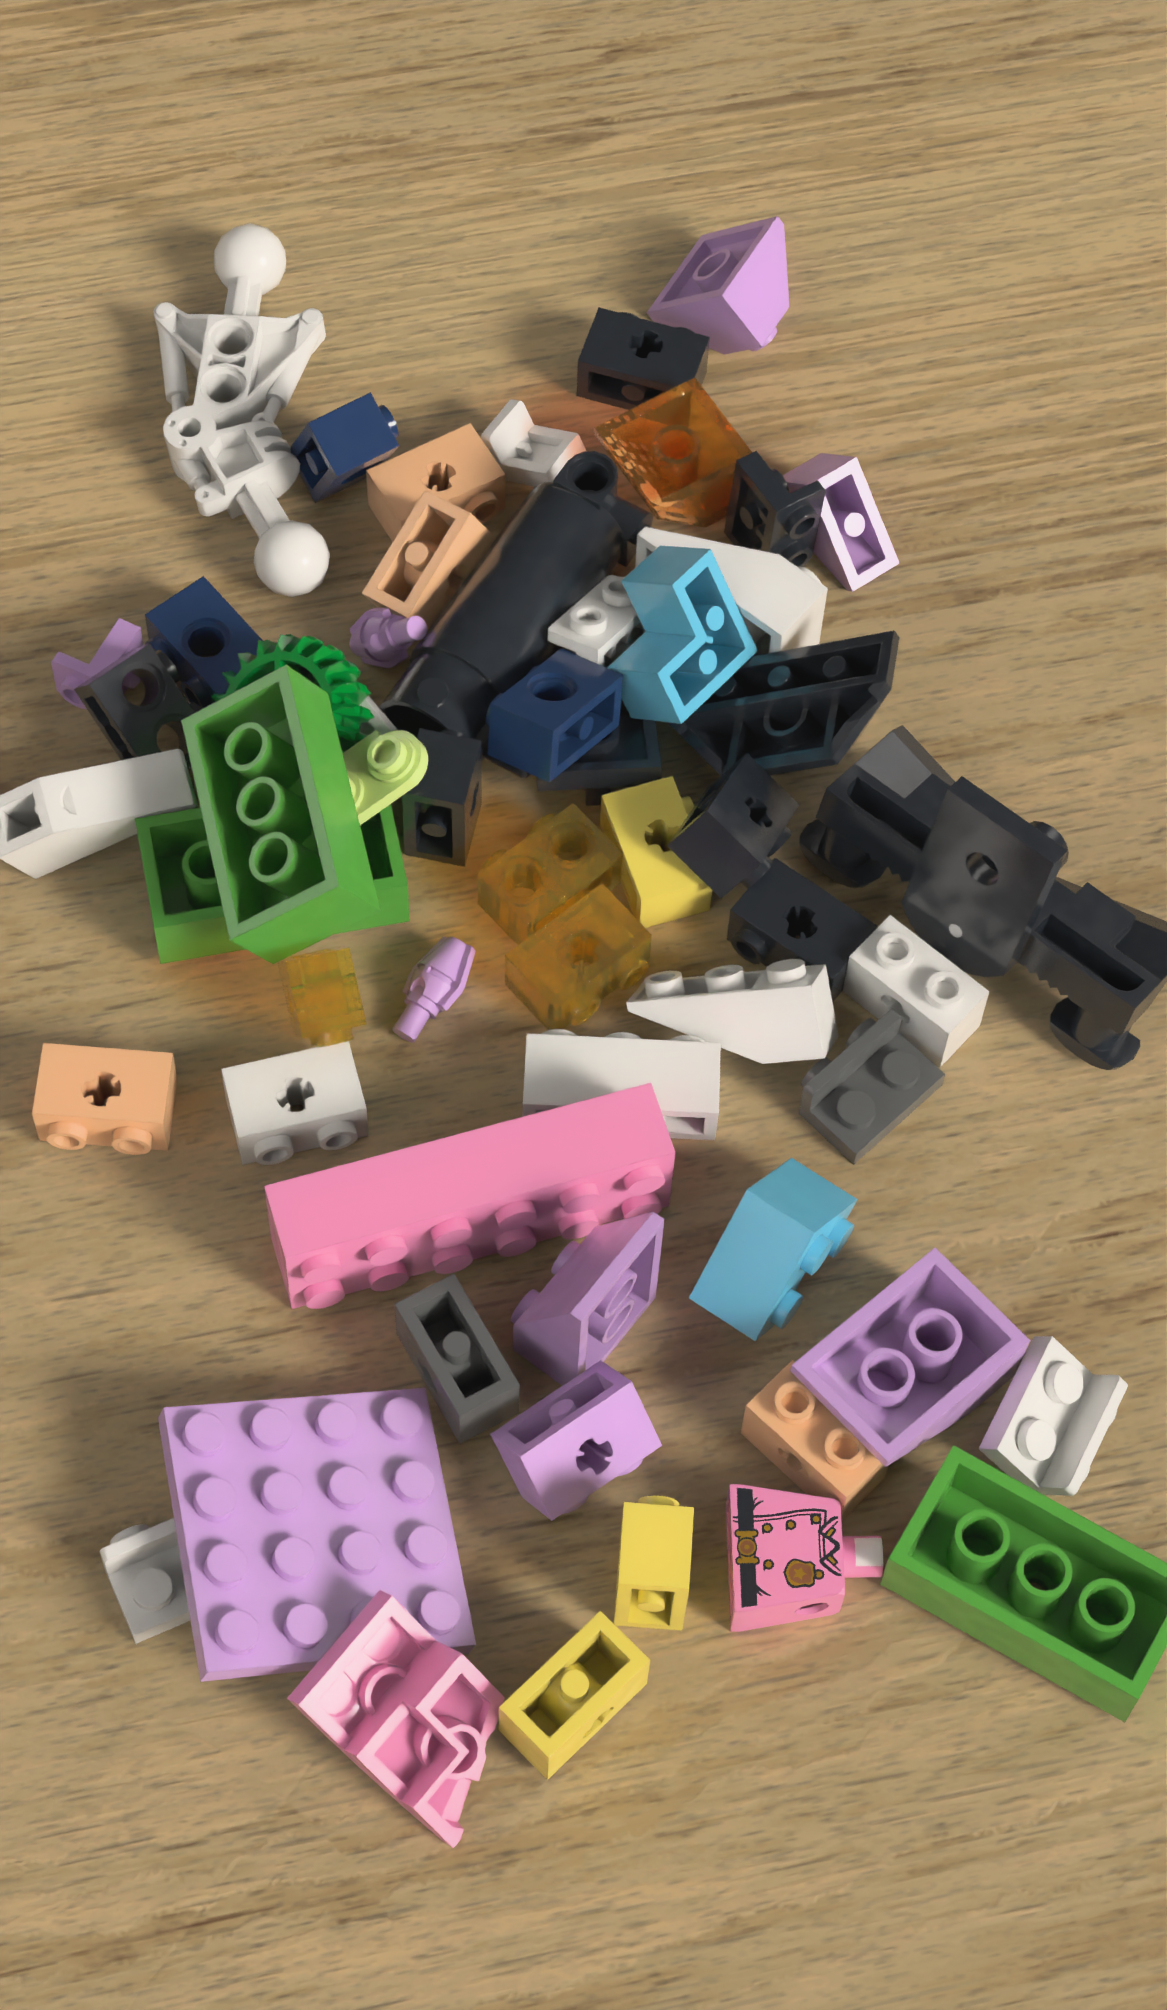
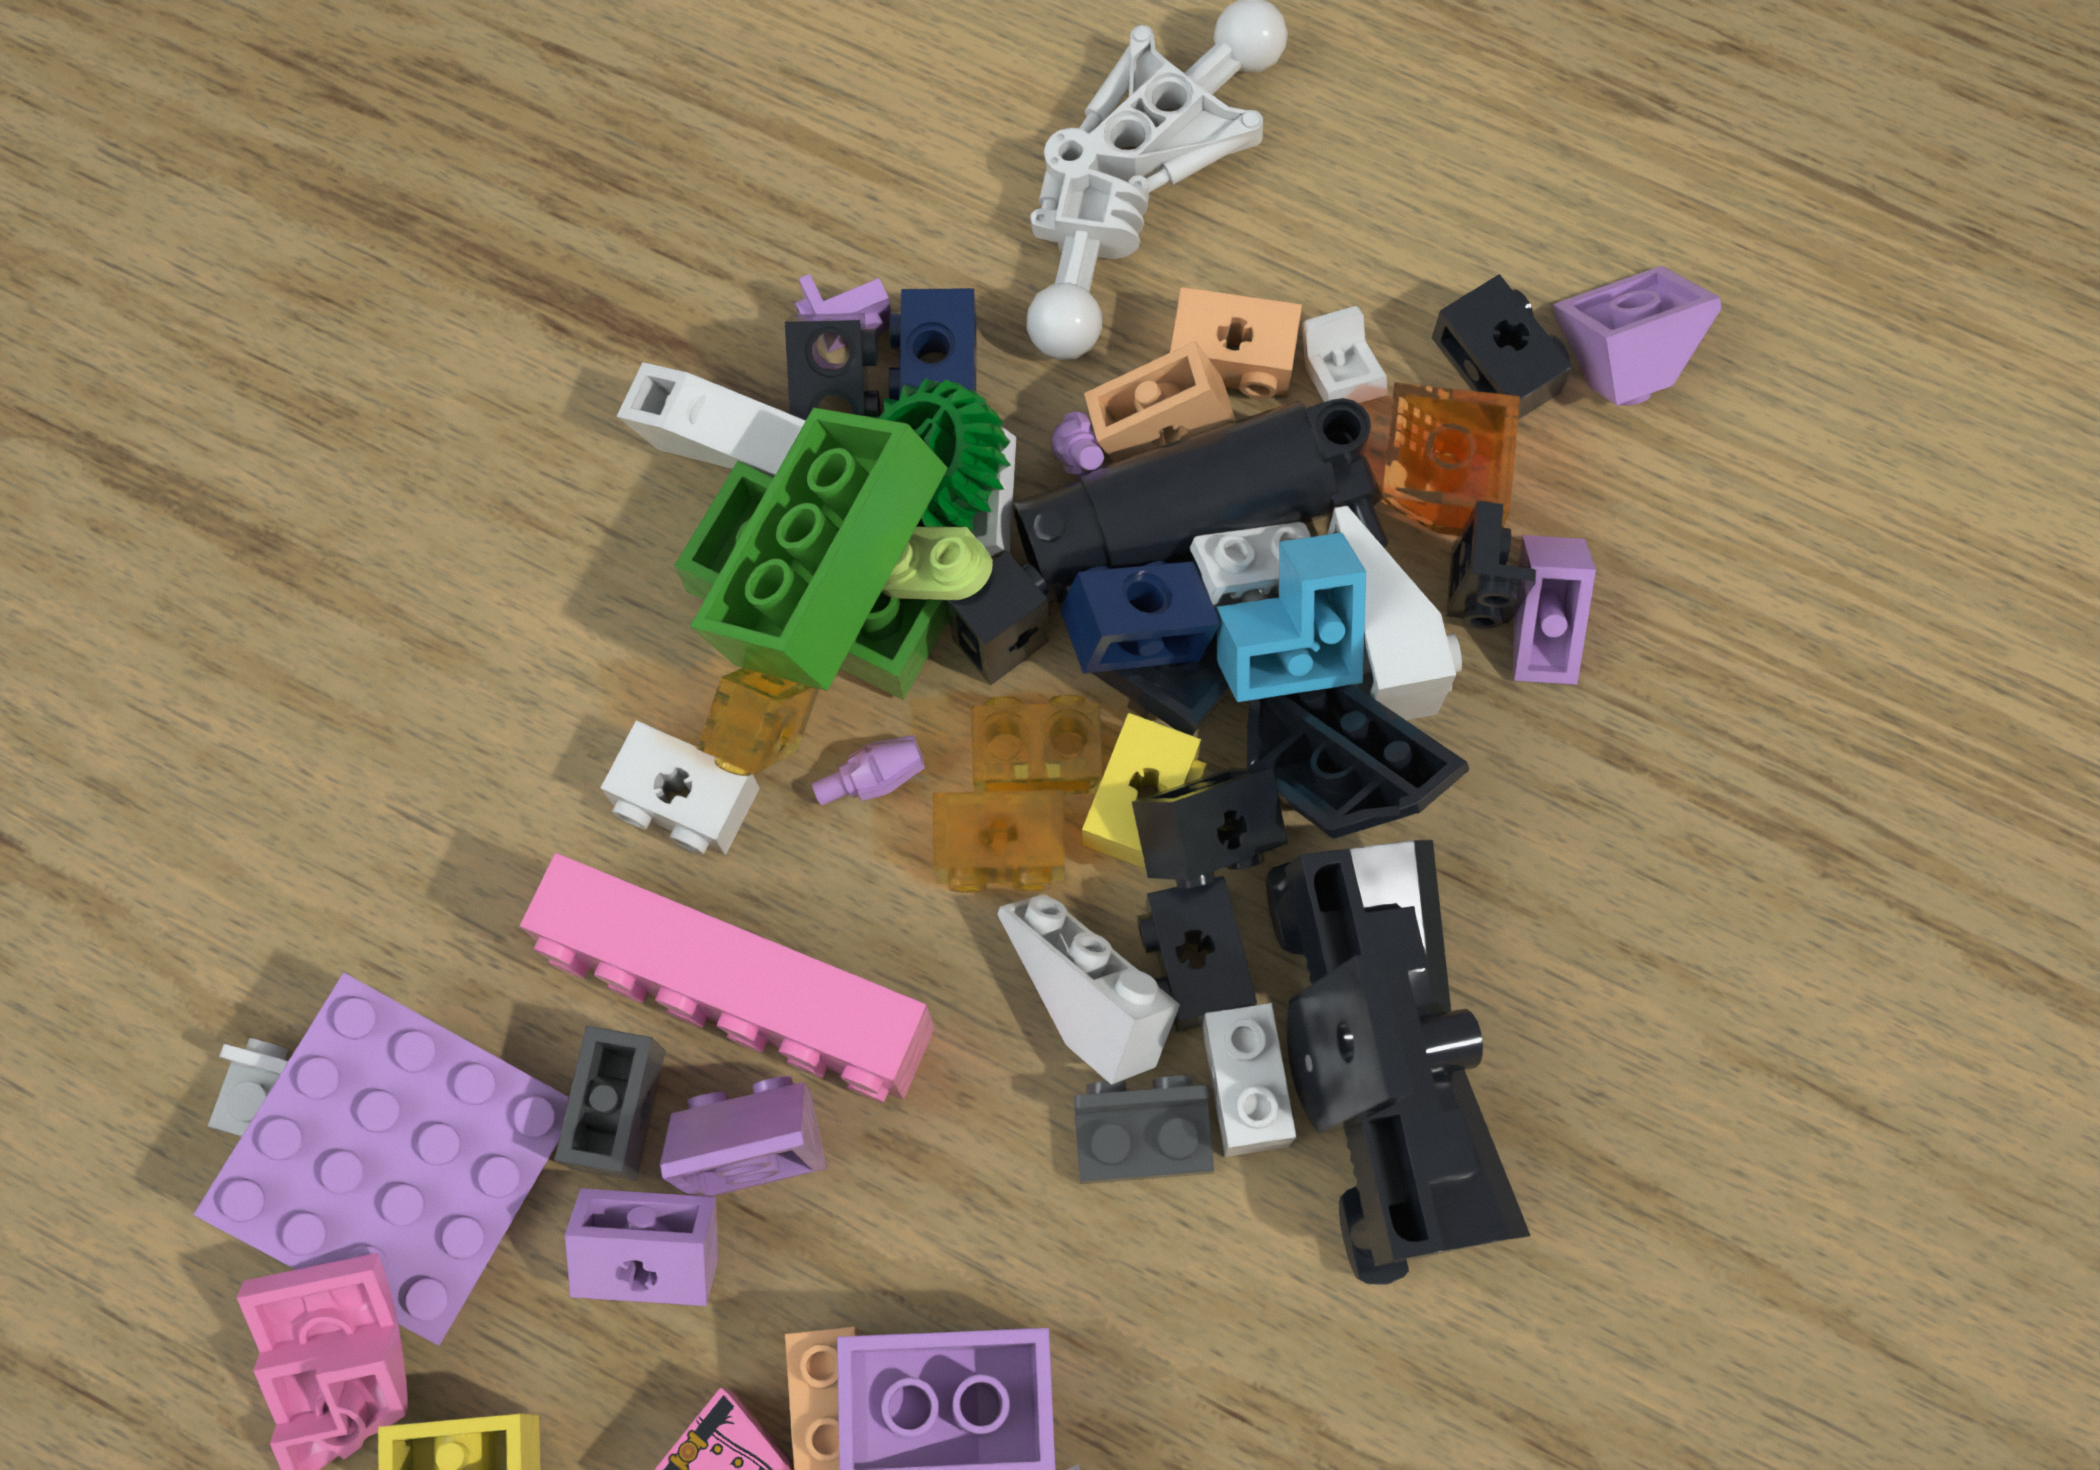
camera: 45 degrees right, 10 degrees up
(77, 1081) = (529, 644): light nougat brick -> none
(343, 445) = (1178, 253): dark blue brick -> none
(578, 1068) = (942, 967): white brick -> none
(654, 1564) = (603, 1404): light yellow brick -> none
(773, 1238) = (935, 1214): medium azure brick -> none

